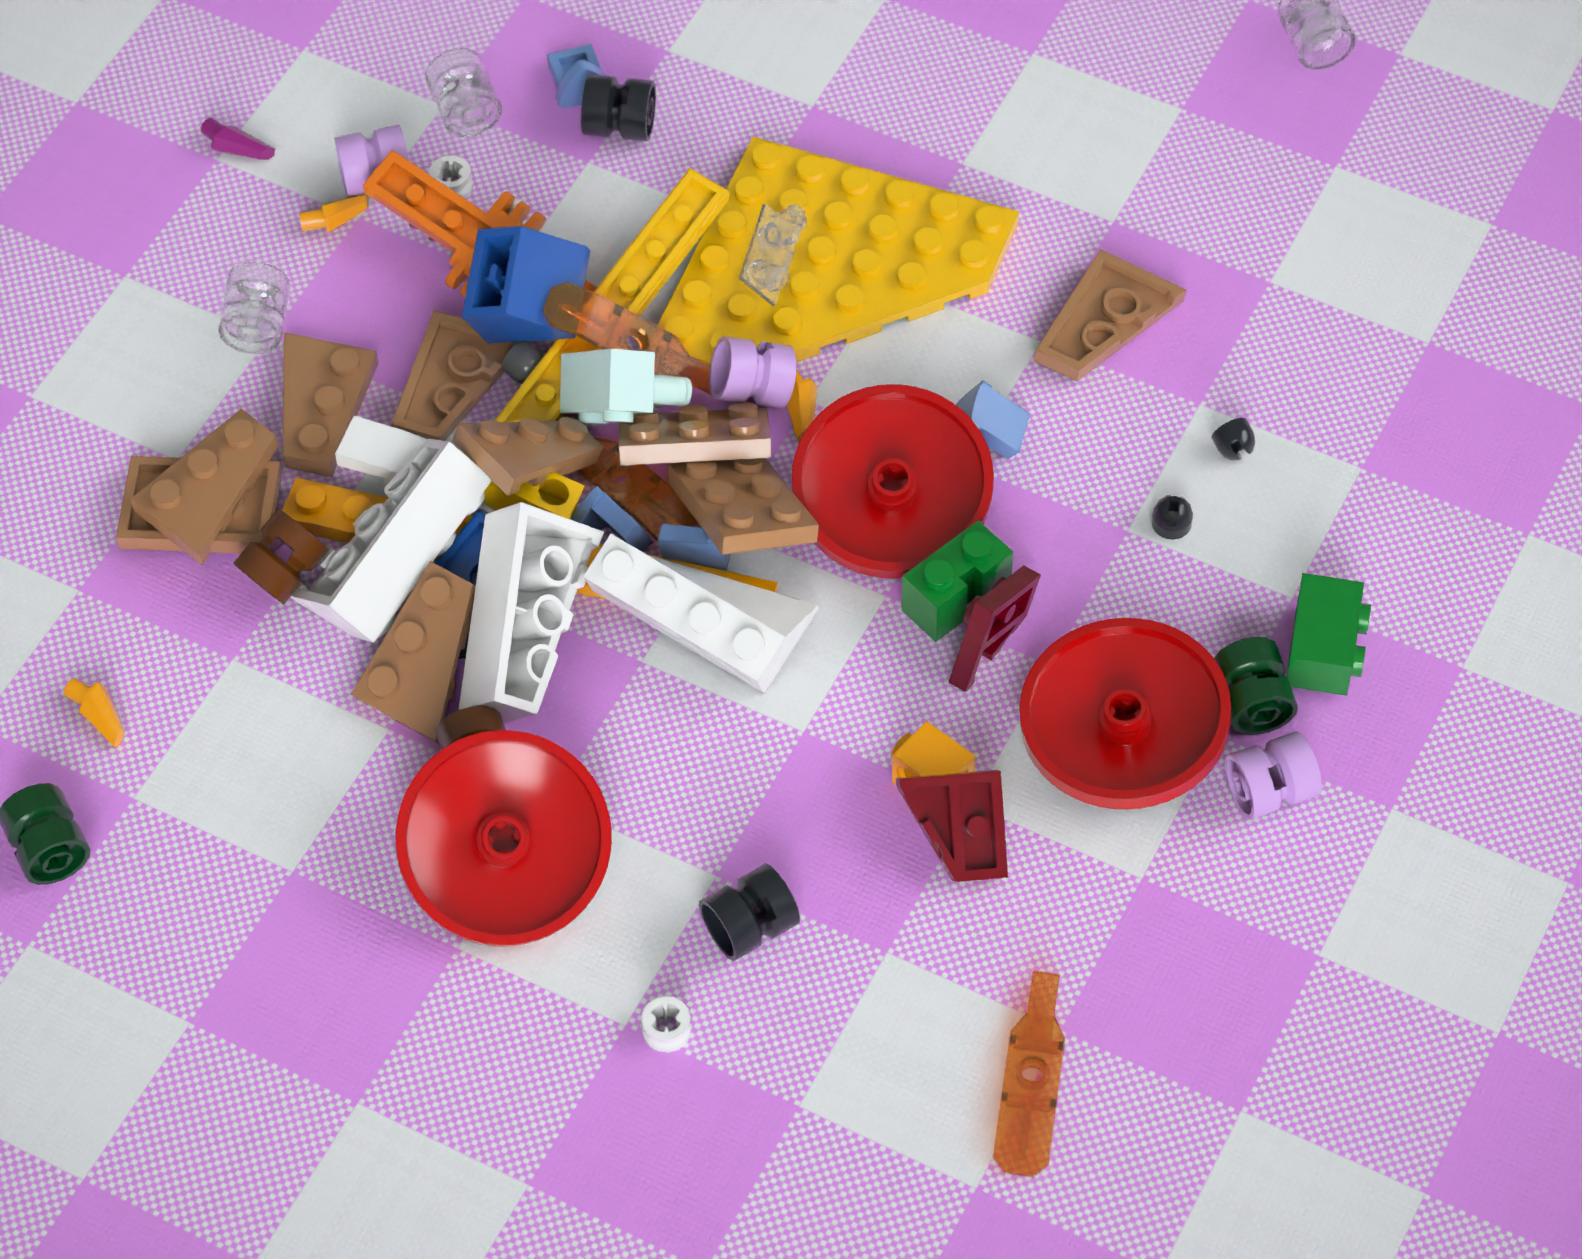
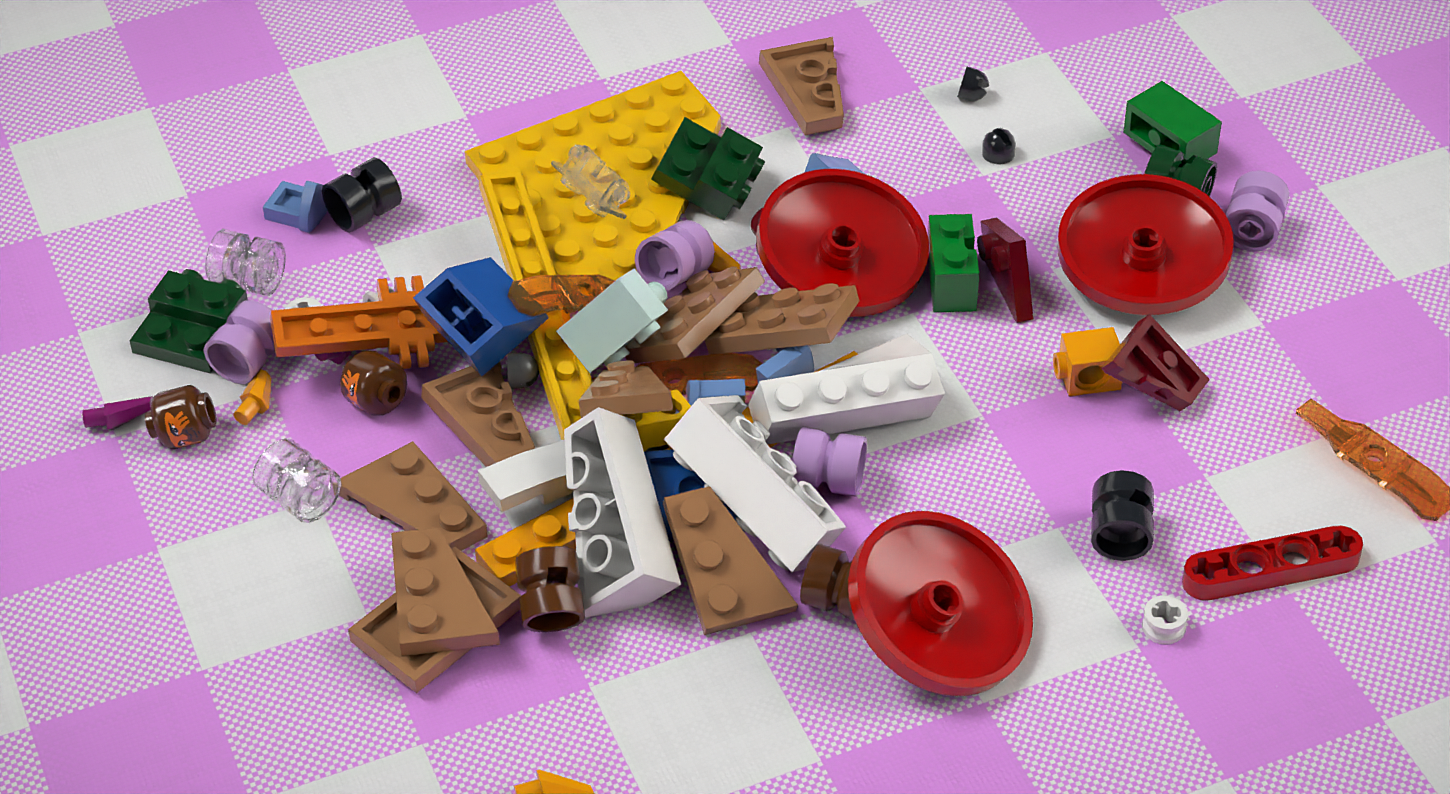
camera: 50 degrees left, 10 degrees down
(257, 183) = (181, 417): none -> reddish brown head
(375, 99) = (184, 317): none -> dark green plate
(410, 274) = (373, 383): none -> reddish brown head
(614, 653) = (835, 462): none -> lavender wheel
(820, 1061) = (1269, 555): none -> red beam
(899, 319) = (709, 167): none -> dark green plate

